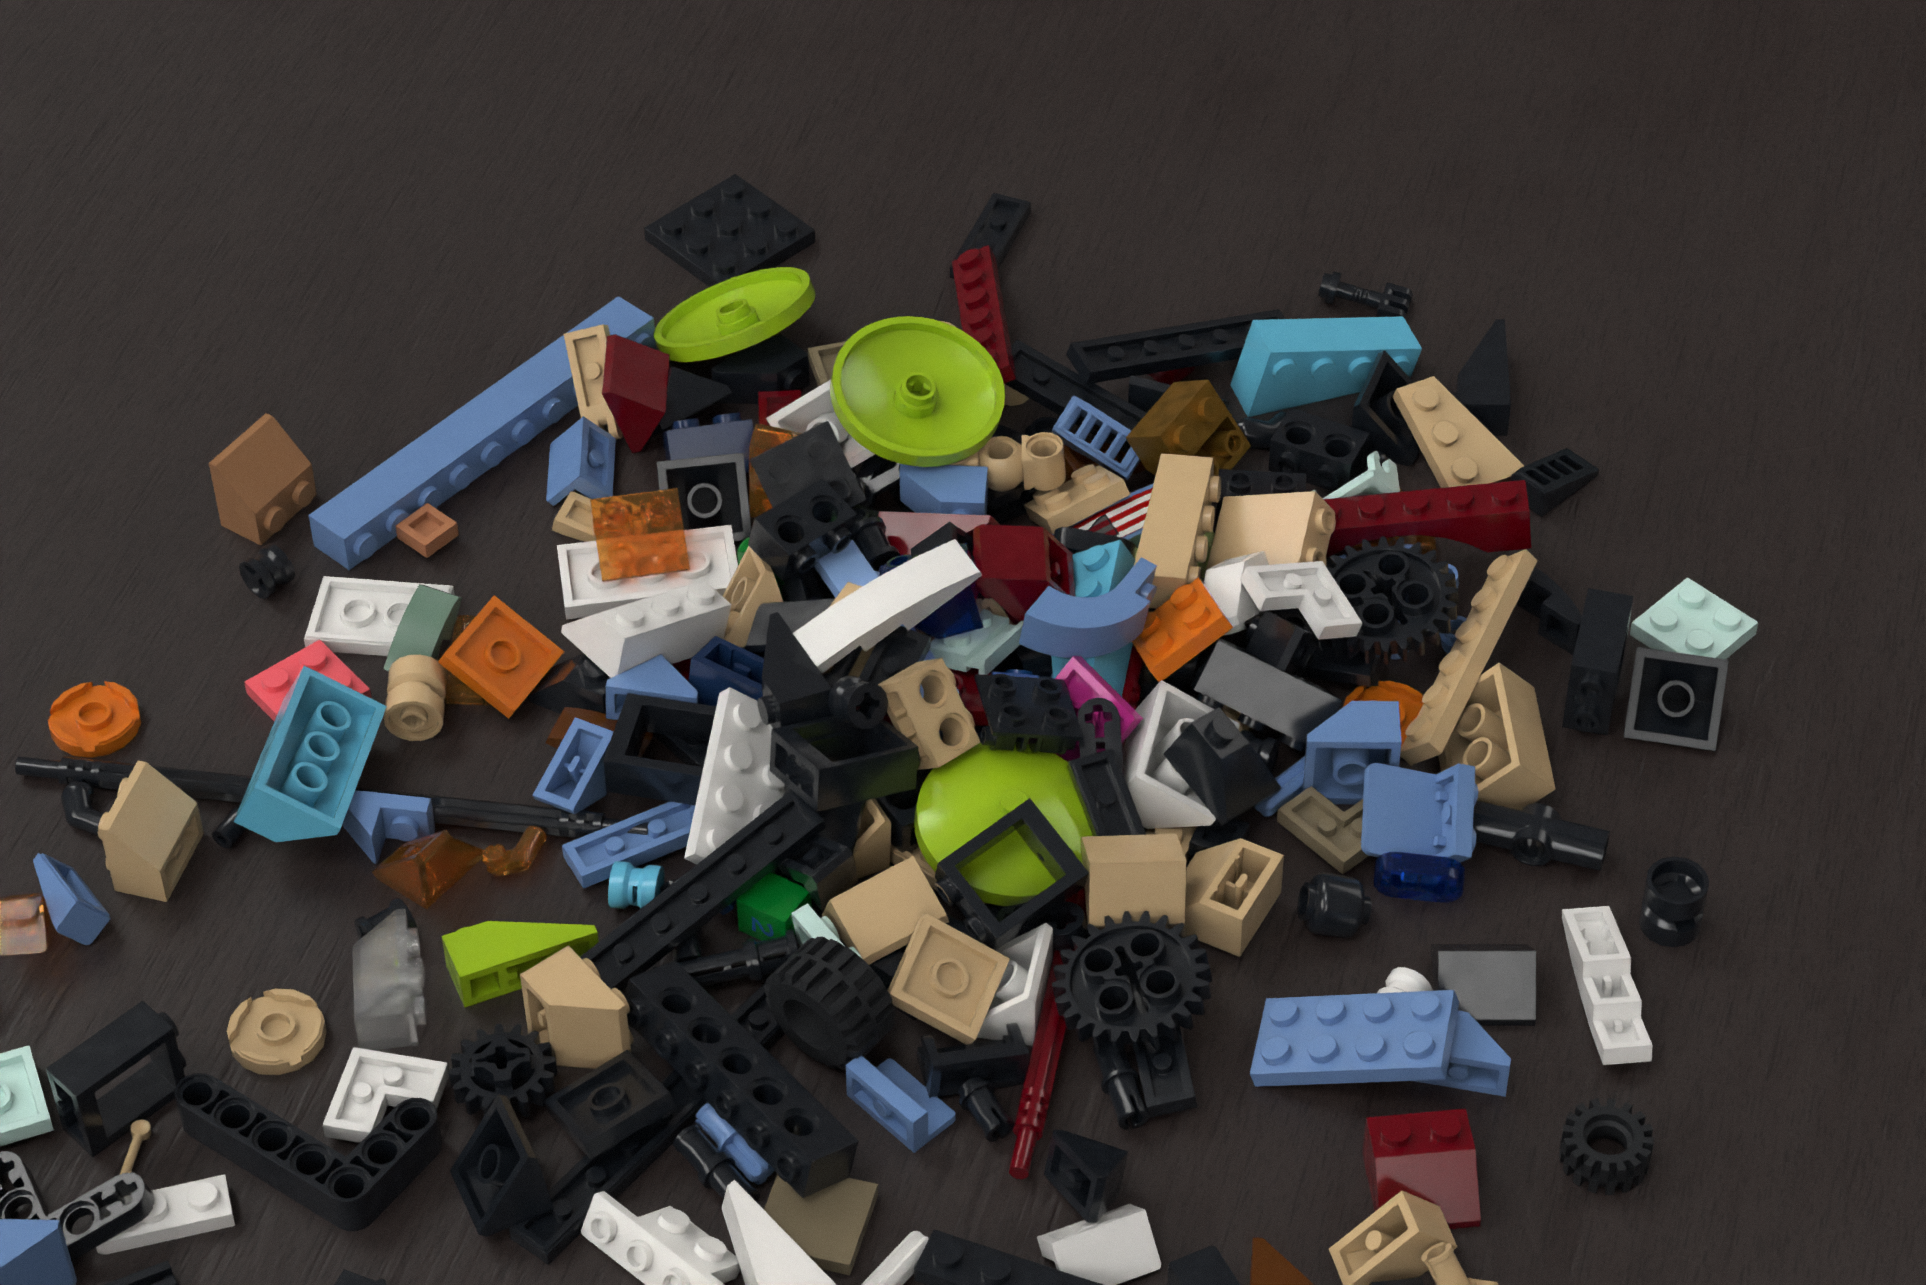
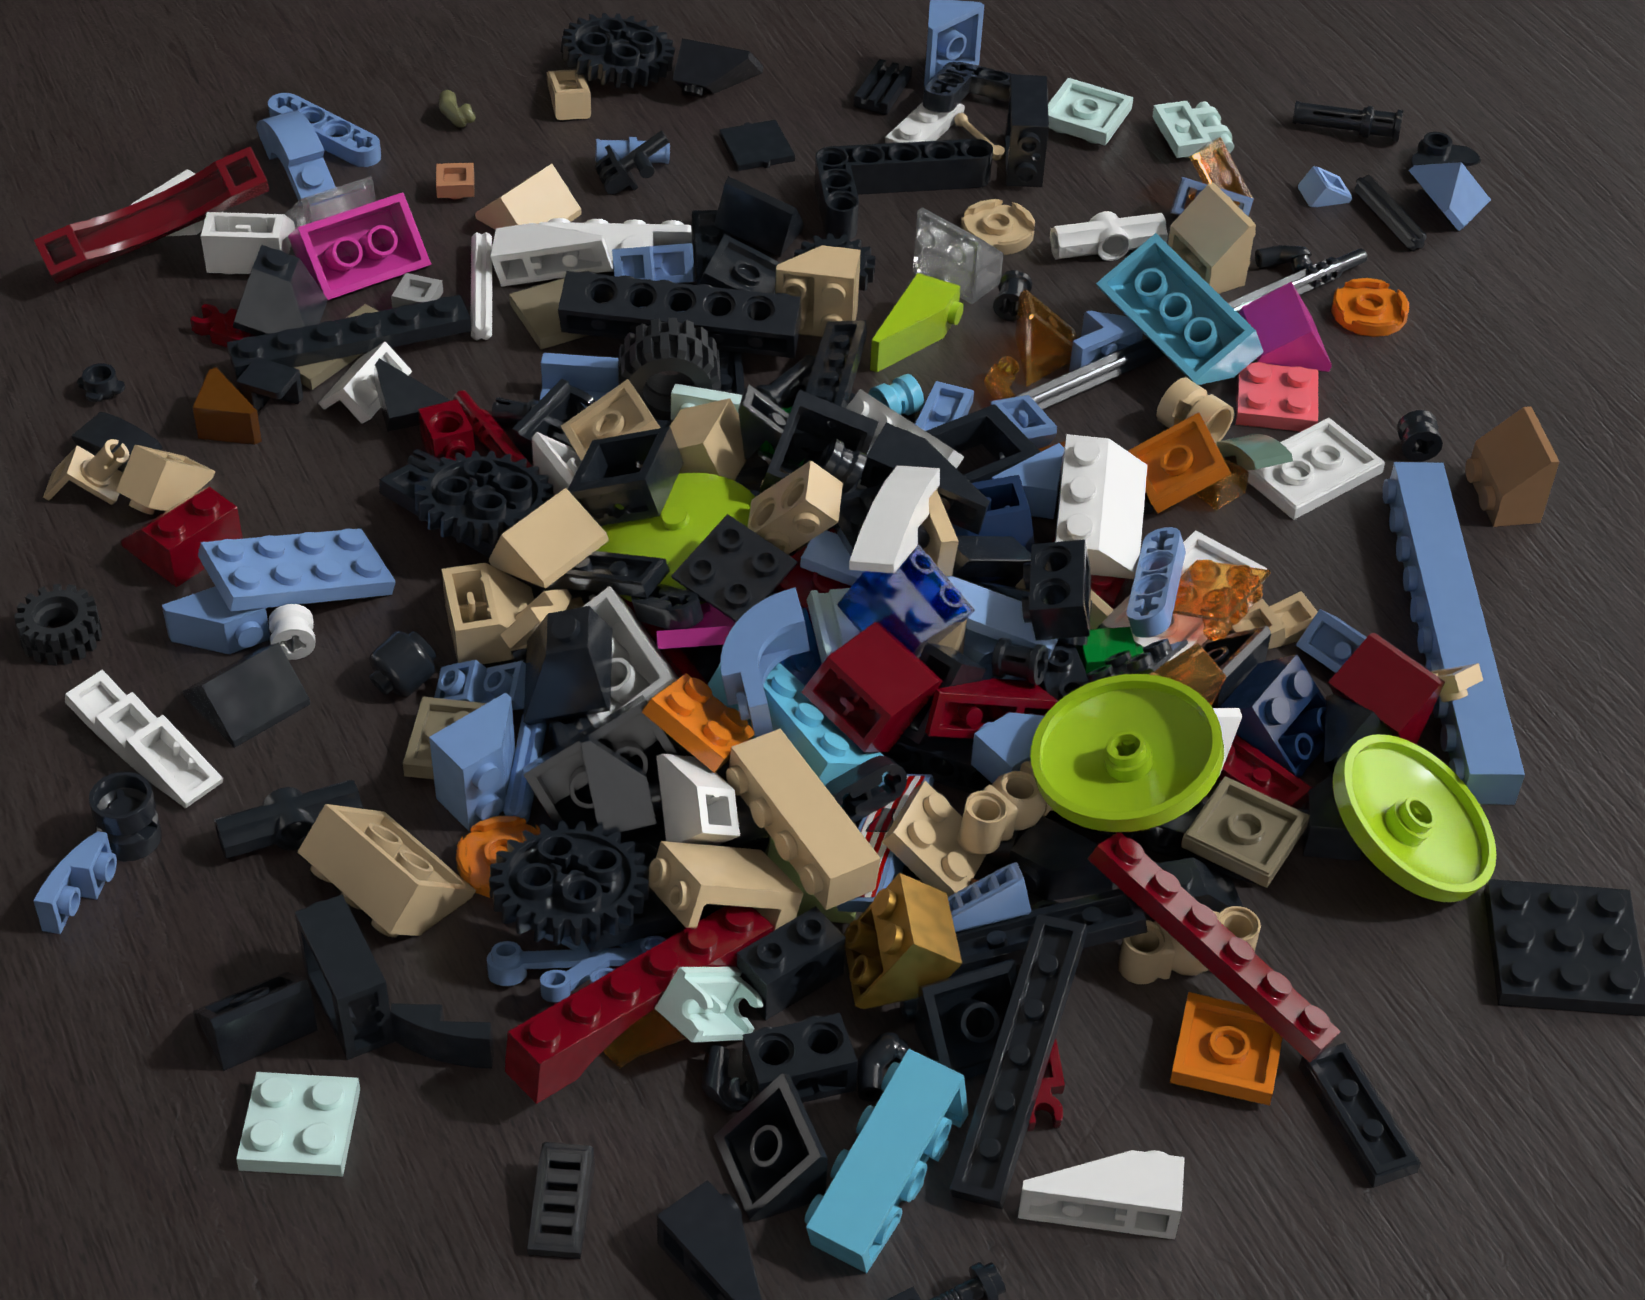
camera: 135 degrees right, 0 degrees up
(206, 932) = (1106, 235): none -> white piece
(221, 723) = (1286, 330): none -> dark pink slope
(377, 1081) = (892, 223): white plate -> none
(427, 530) = (1372, 531): nougat plate -> none
(667, 558) = (1156, 582): none -> medium blue beam
(681, 1193) = (656, 262): none -> medium blue slope
(1037, 303) = (1226, 1050): none -> orange plate
(1082, 1109) = (446, 430): none -> dark red brick
(1202, 277) = (1116, 1193): none -> white slope
(1208, 825) = (529, 618): none -> tan slope
(1273, 829) = (480, 684): none -> medium blue slope
(1310, 590) = (628, 815): white plate -> none
(1419, 811) = (391, 751): medium blue bracket -> none
(1419, 877) = (356, 728): clear blue beam -> none
(1452, 438) = (682, 1149): tan wing -> none
(1467, 658) = (465, 913): tan plate -> none
(1742, 888) = (76, 876): none -> medium blue slope

